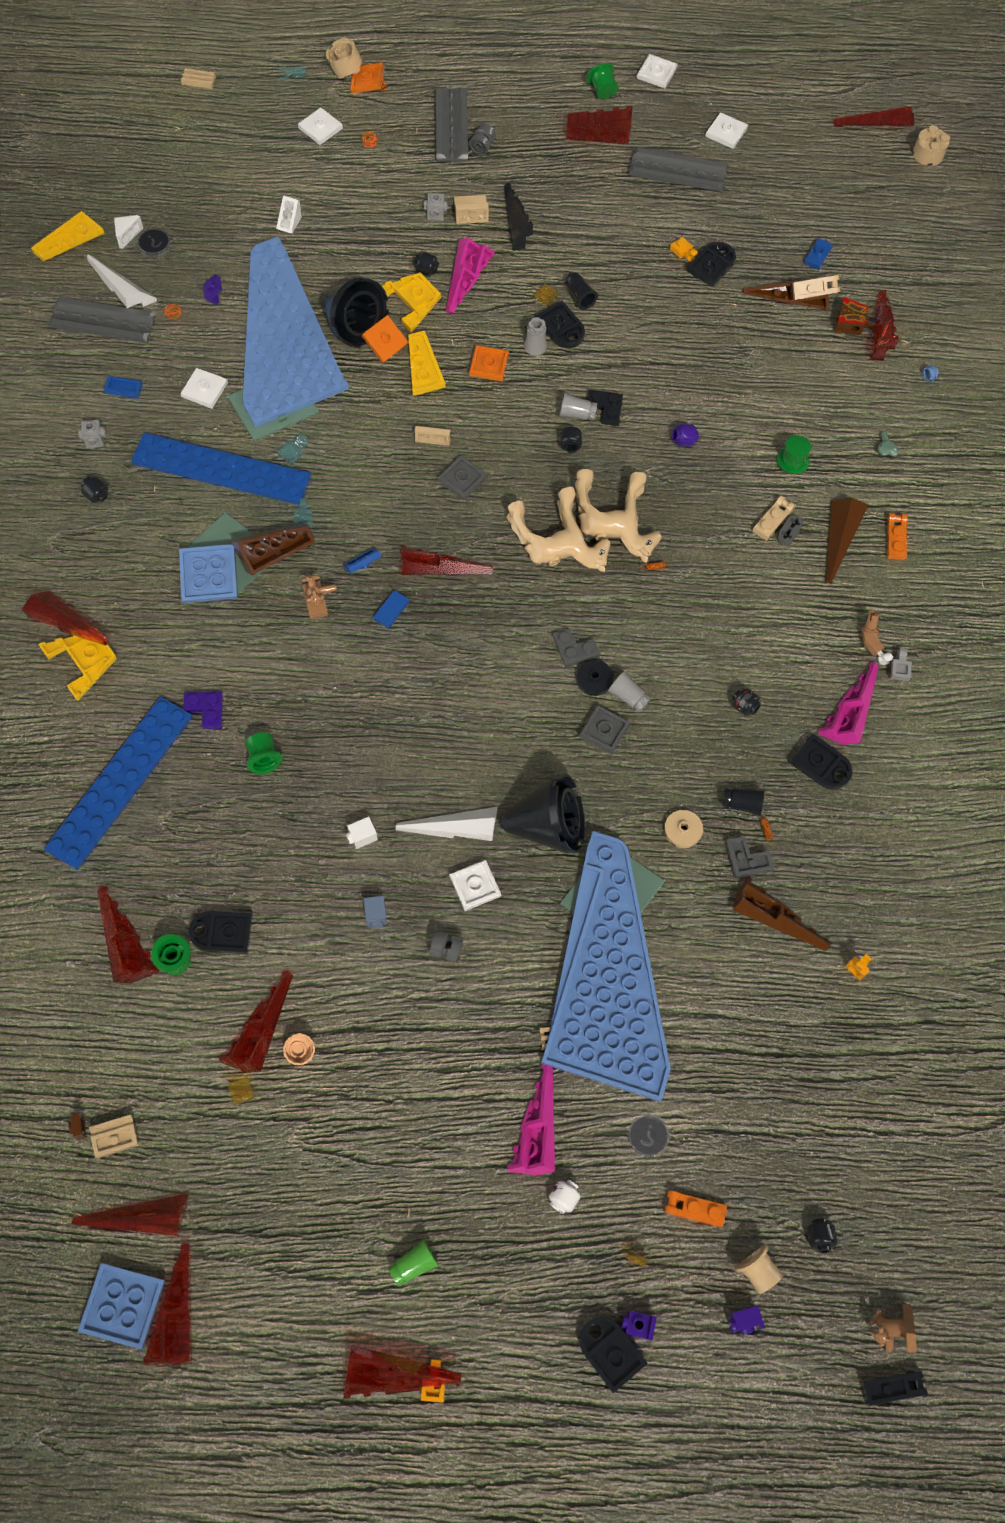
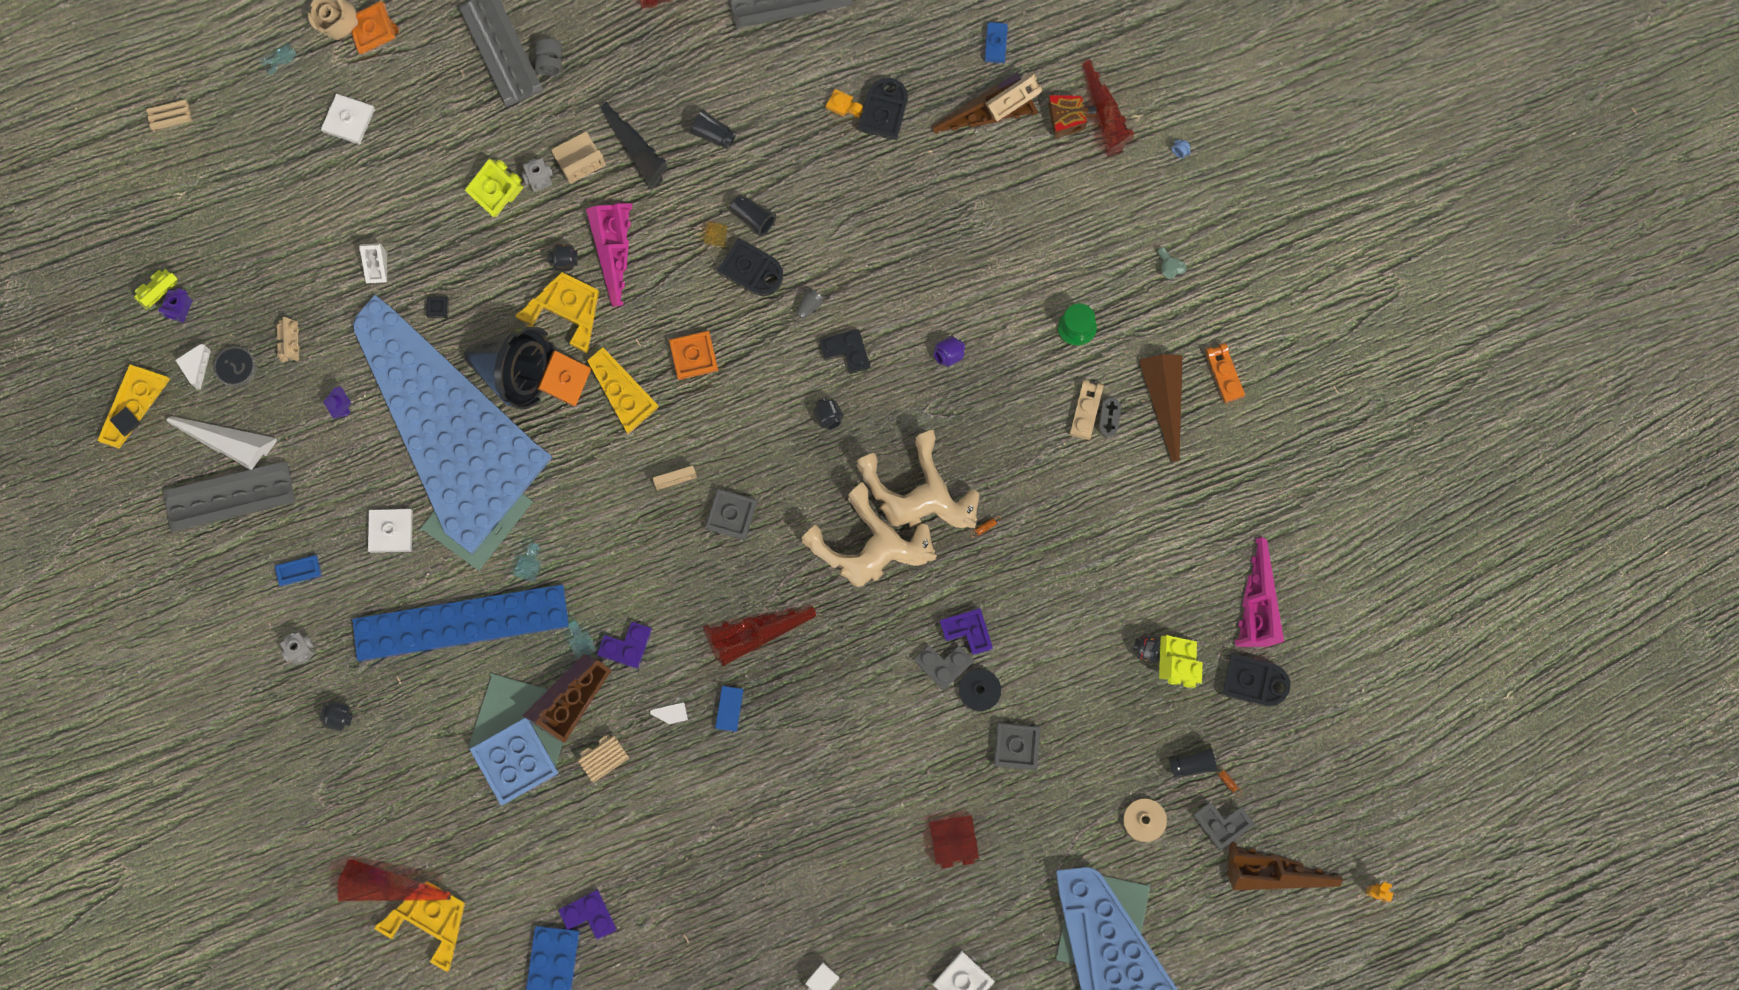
camera: 20 degrees left, 10 degrees up
(57, 242) = (125, 421): none -> black tile
(127, 172) = (156, 289): none -> neon yellow plate
(135, 189) = (180, 309): none -> dark purple brick
(172, 311) = (305, 449): clear yellow tile -> none
(202, 239) = (288, 331): none -> tan hinge
(262, 754) = (677, 943): green piece -> none
(276, 601) = (602, 758): none -> tan brick
(314, 596) = (642, 734): medium nougat piece -> none
(318, 262) = (437, 307): none -> black tile
(337, 538) = (628, 651): none -> dark purple plate
(346, 595) = (671, 714): none -> white sticker
(362, 561) = (671, 667): blue plate -> none
(369, 139) = (414, 111): clear yellow tile -> none
(400, 202) = (494, 186): none -> neon yellow plate
(469, 824) = (924, 919): white wedge -> none
(519, 776) = (954, 841): none -> clear red plate
(536, 337) = (732, 303): light grey plant -> none
(549, 816) = (1008, 879): black cone -> none
(577, 226) = (713, 130): none -> black plant
(577, 408) = (817, 370): light grey plant -> none
(594, 363) = (809, 303): none -> dark grey cone
(607, 626) = (970, 625): none -> dark purple plate
(629, 692) = (1025, 693): light grey plant -> none
(766, 720) = (1179, 662): none -> neon yellow plate
(870, 638) = (1244, 508): medium nougat arm -> none
(901, 667) = (1291, 532): light grey plate -> none

